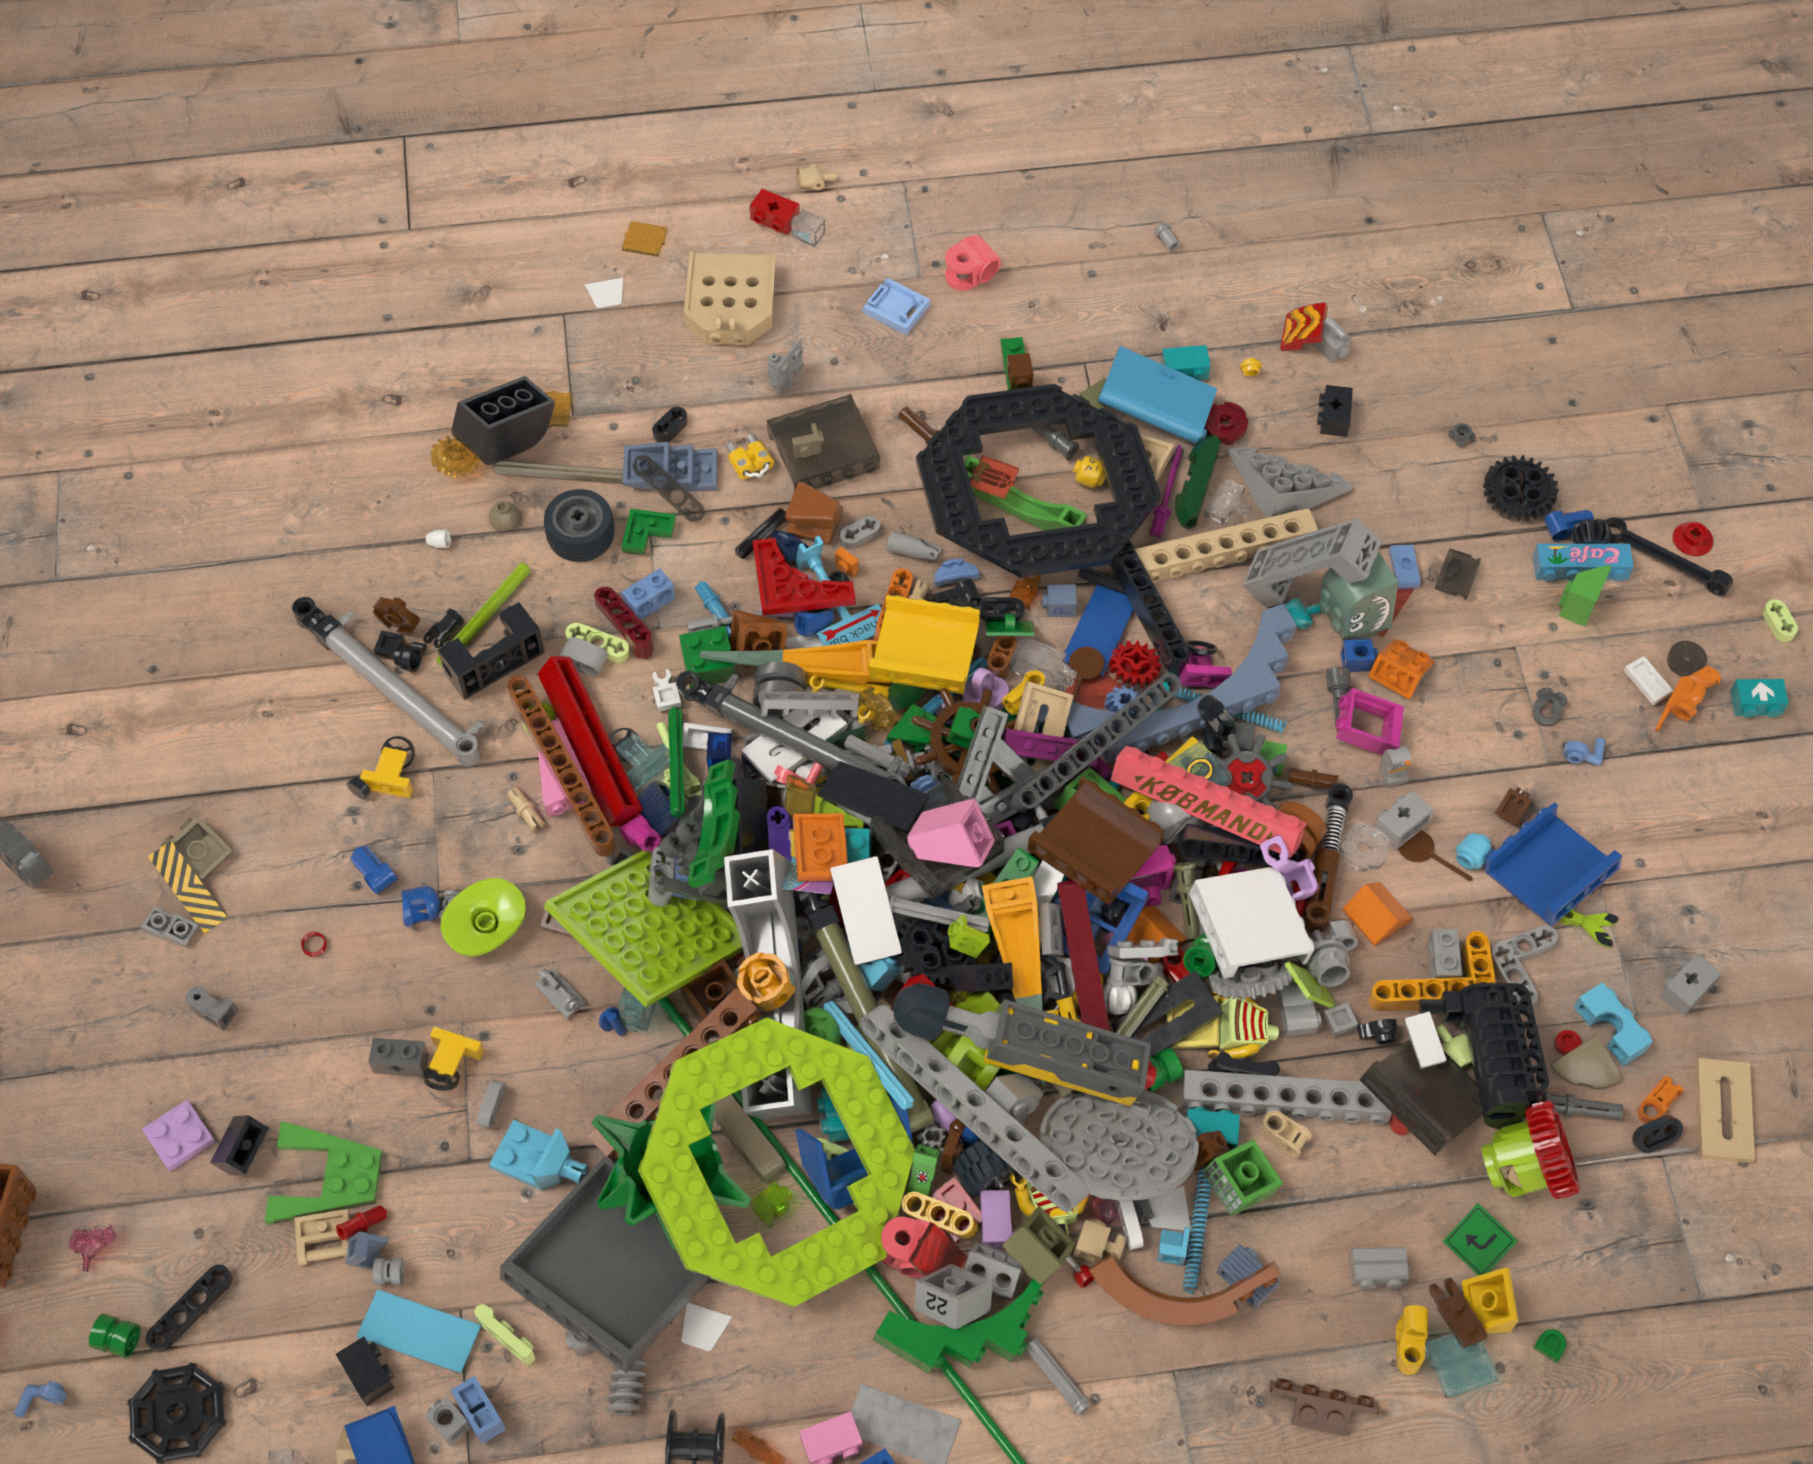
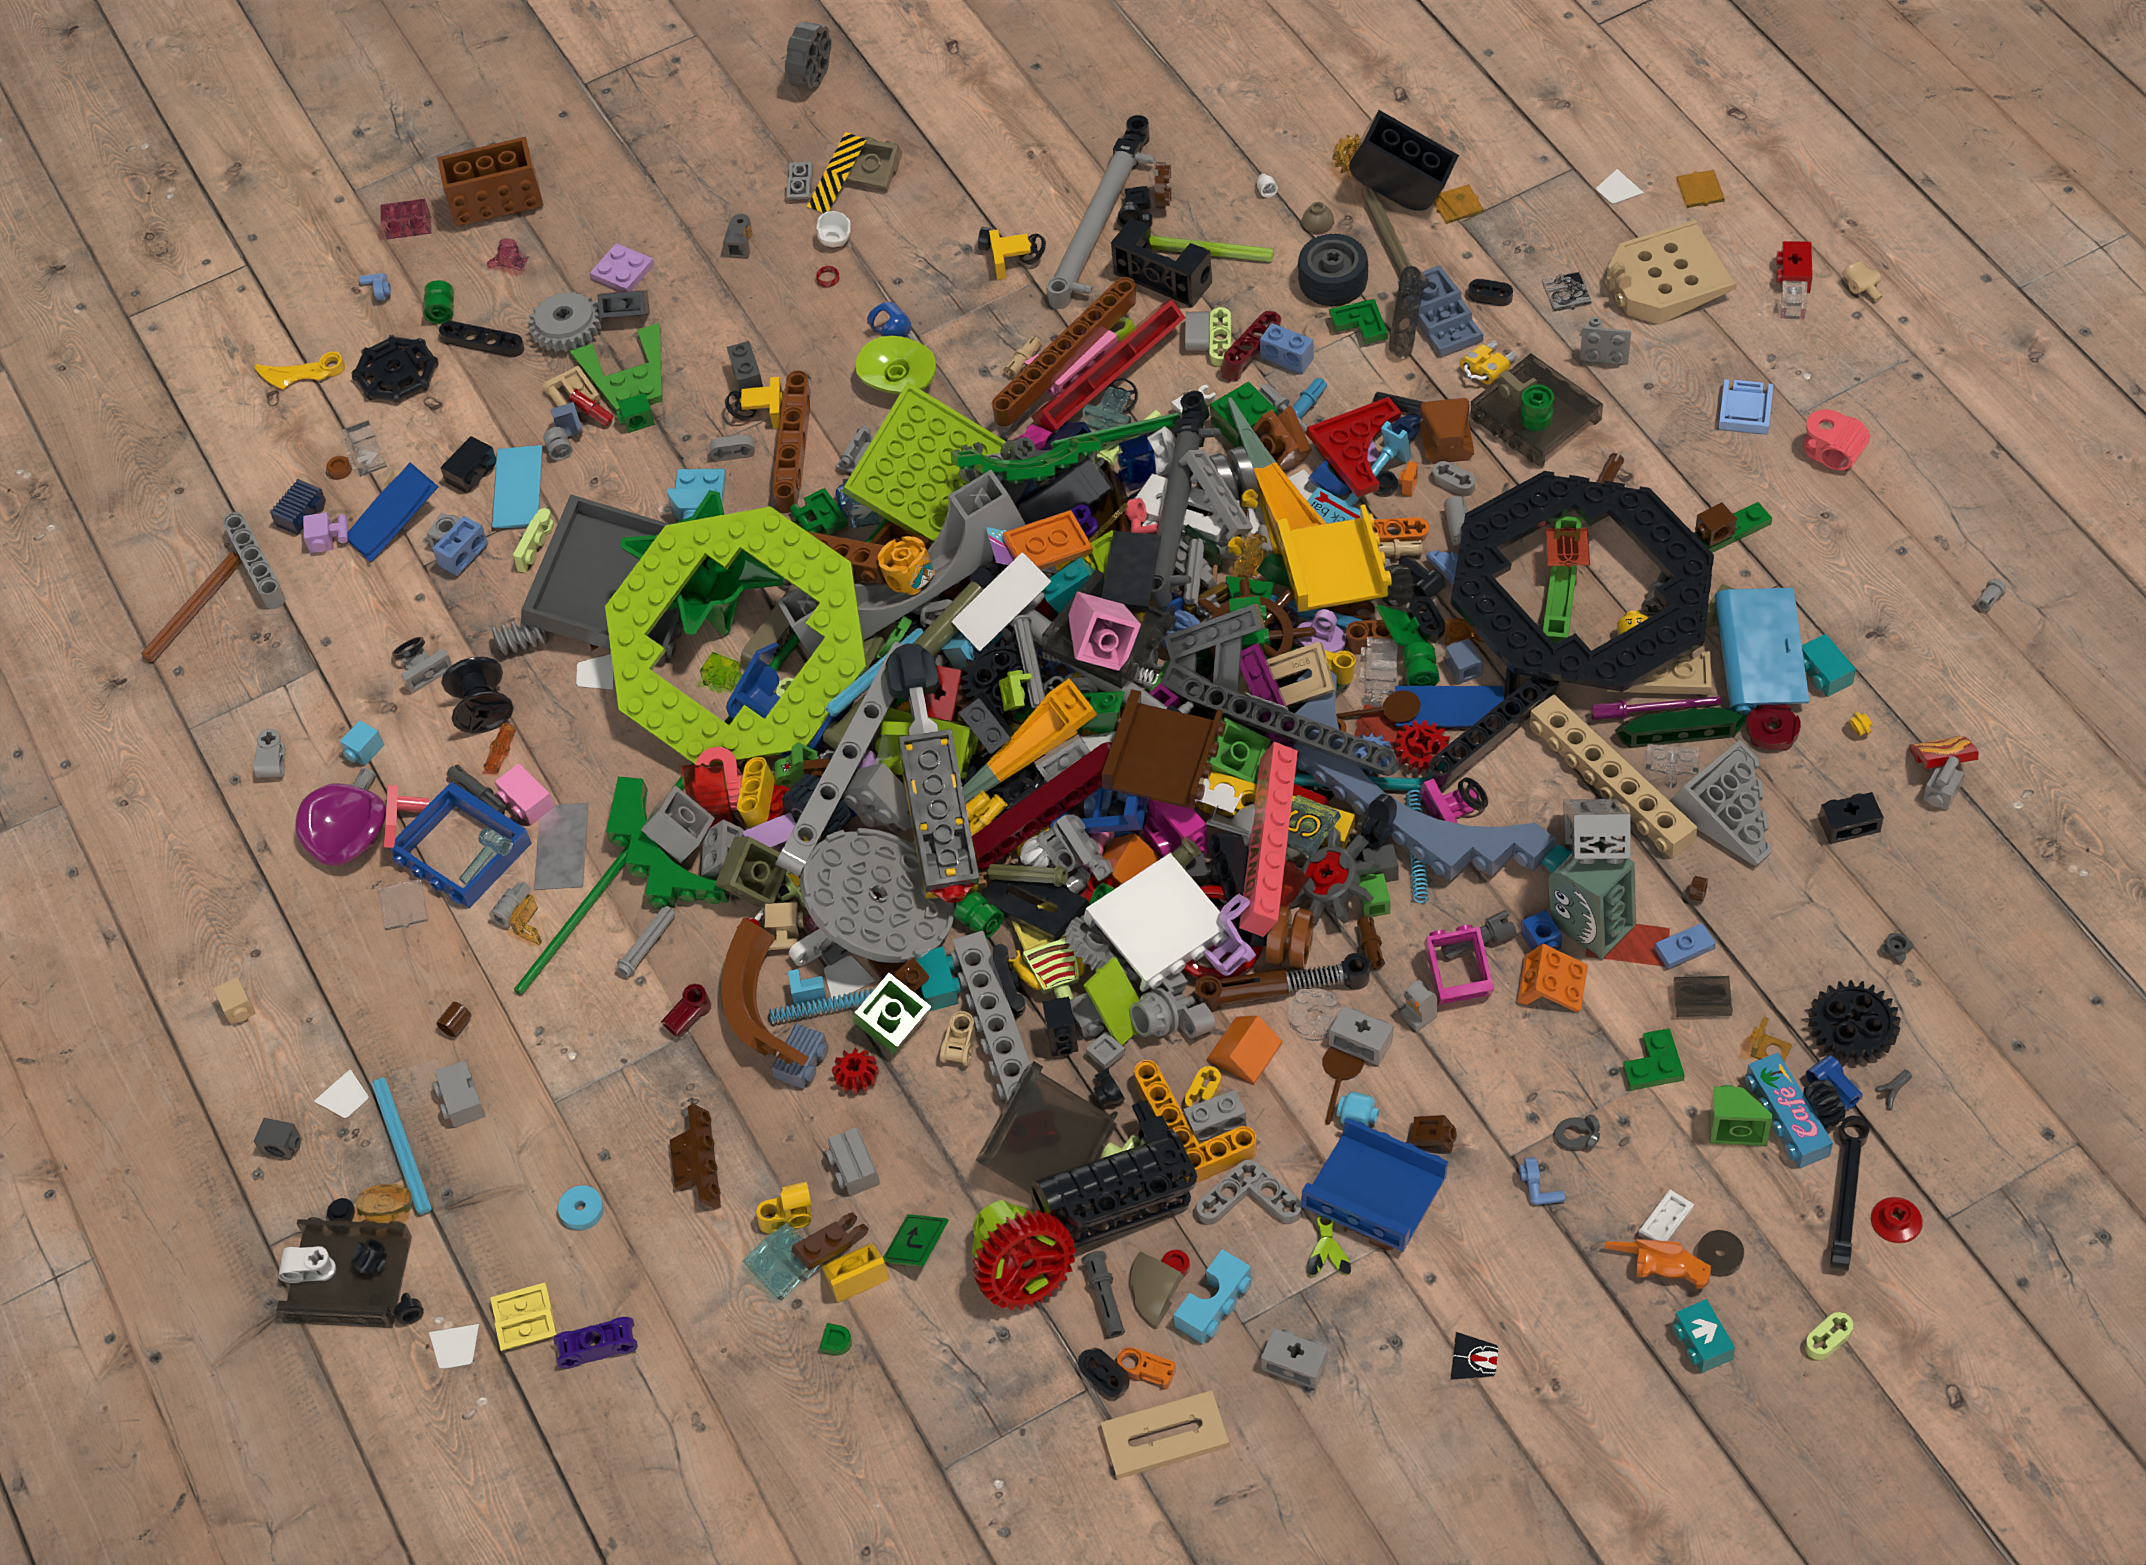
camera: 75 degrees right, 5 degrees down
(237, 1224) = (565, 321): none -> light grey gear
(262, 915) = (833, 229): none -> white hair
(376, 874) = (911, 283): blue piece -> none
(392, 1181) = (635, 413): none -> green brick
(443, 629) = (1172, 226): black piece -> none
(516, 1045) = (791, 441): none -> dark orange beam
(620, 1045) = (824, 510): none -> green plate
(699, 373) = (1566, 291): none -> piece
(840, 436) = (1537, 407): none -> green wheel
(1053, 632) = (1420, 664): none -> green wheel
(1157, 1364) = (686, 1010): none -> dark red piece
(1277, 1239) = (864, 1068): none -> red gear
(1313, 1042) = (1060, 1026): none -> black brick
(1407, 959) = (1198, 1085): none -> yellow beam
(1425, 1040) = (1102, 1118): white tile -> none
(1504, 624) = (1660, 1066): none -> green plate
(1515, 551) = (1761, 1041): none -> clear yellow bracket
(1582, 489) = (1894, 1086): none -> dark grey bar
(1721, 860) = (1473, 1358): none -> black sticker

